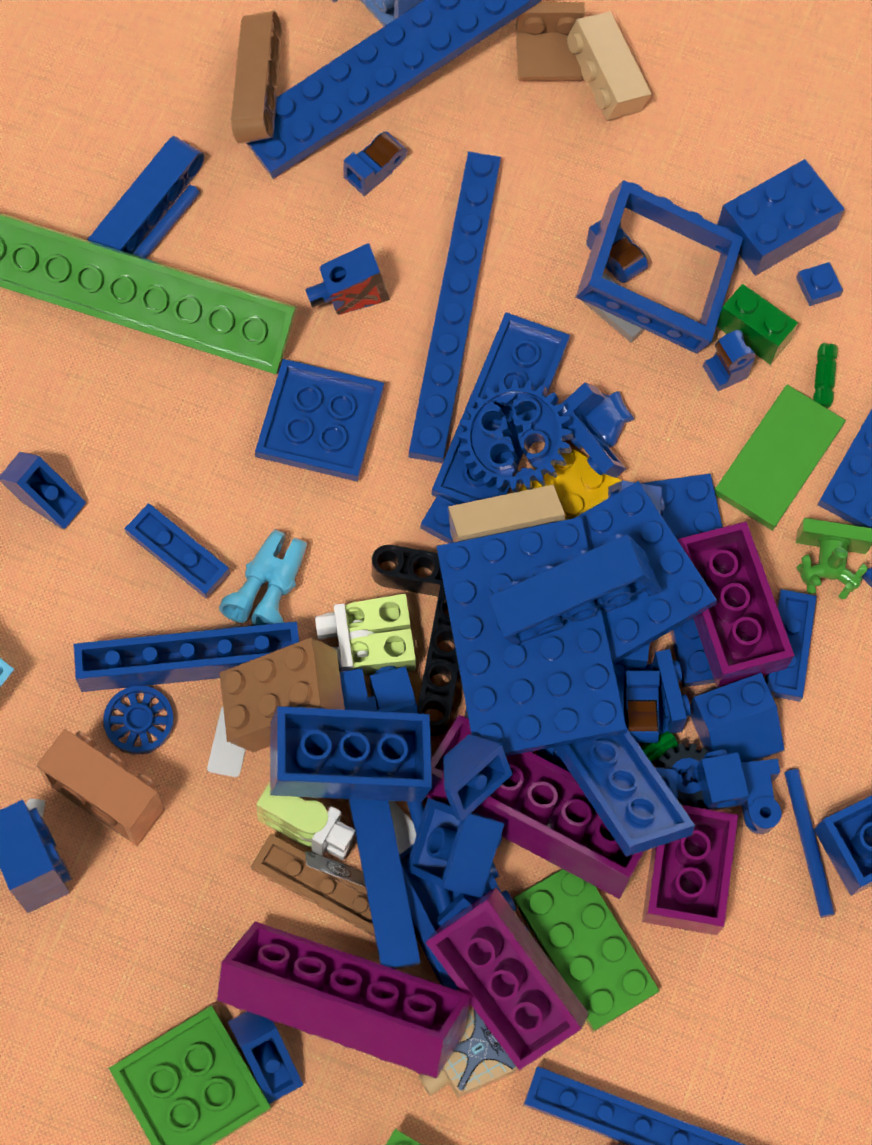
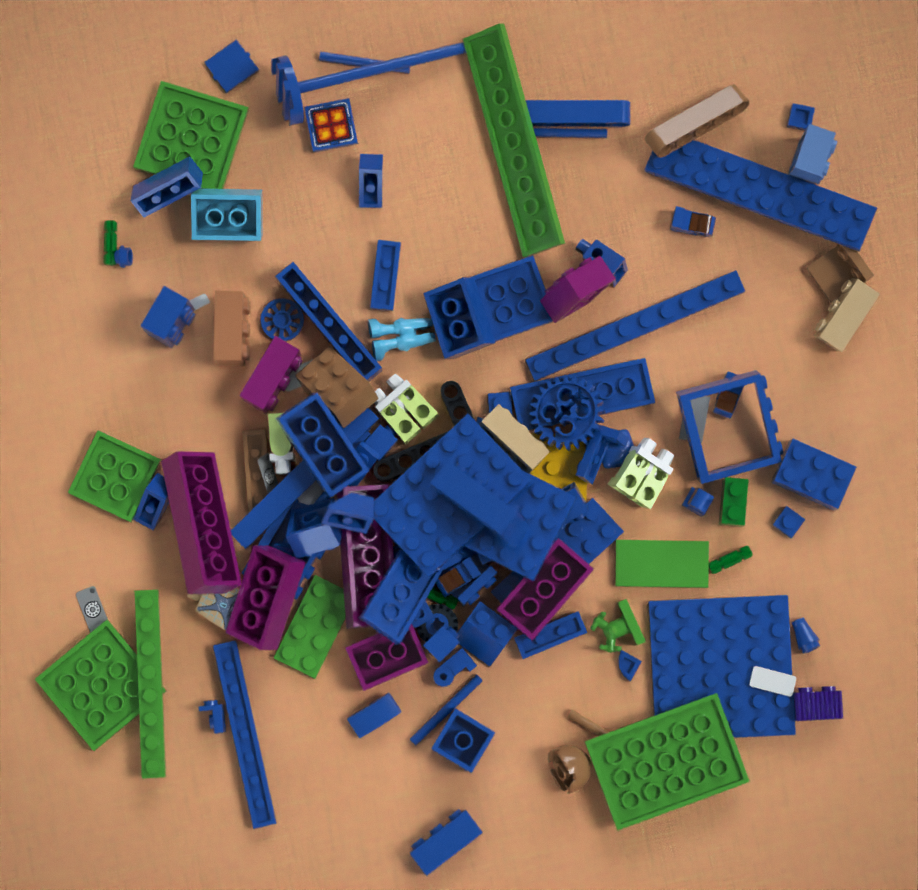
camera: 60 degrees right, 15 degrees up
(205, 773) = (271, 375): none -> magenta brick
(300, 489) = (459, 318): none -> blue brick
(367, 320) = (577, 288): none -> magenta brick
(653, 402) = (643, 473): none -> yellowish green hips
(762, 941) = (374, 715): none -> blue slope

